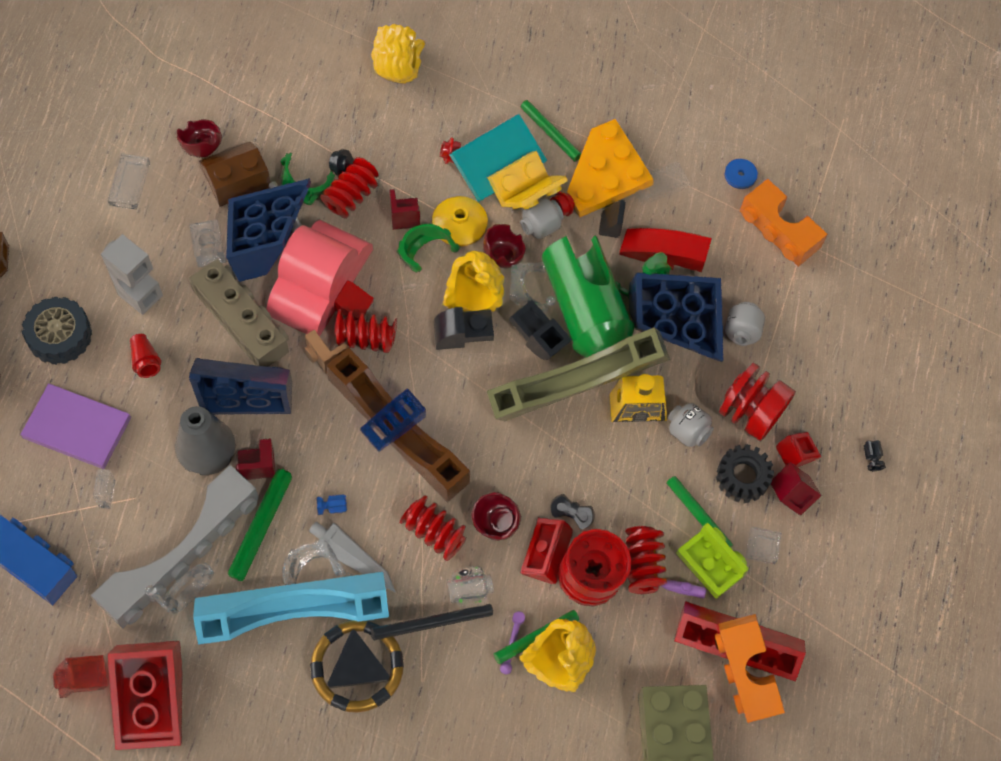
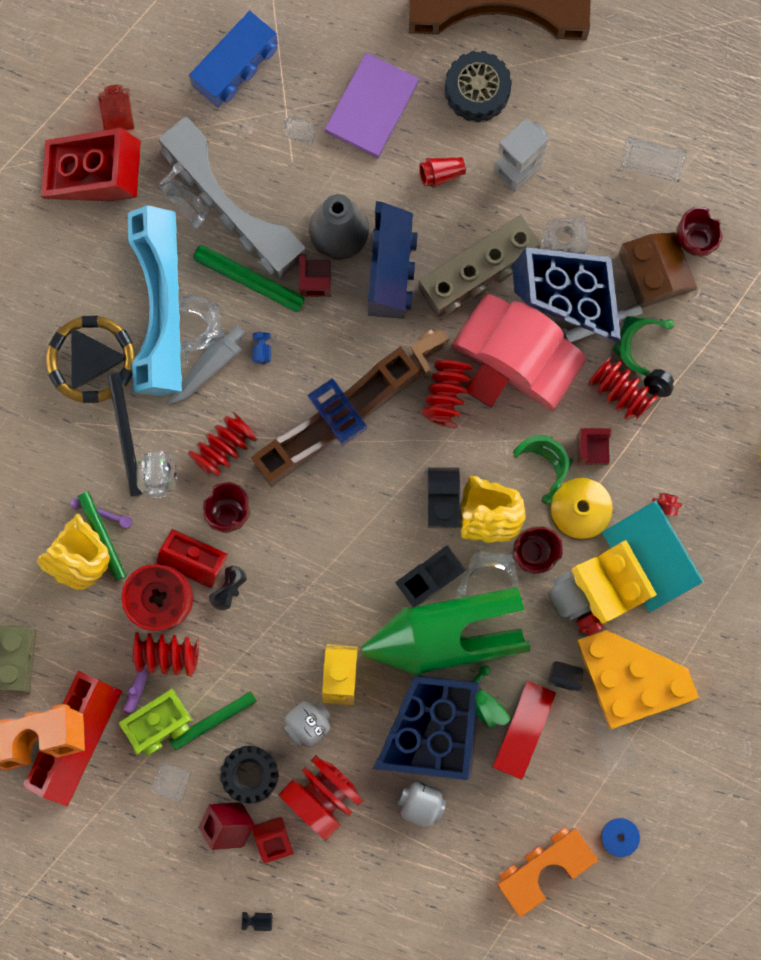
camera: 100 degrees right, 15 degrees up
(551, 130) = (691, 622): green bar -> none
(608, 365) = (367, 643): olive arch -> none

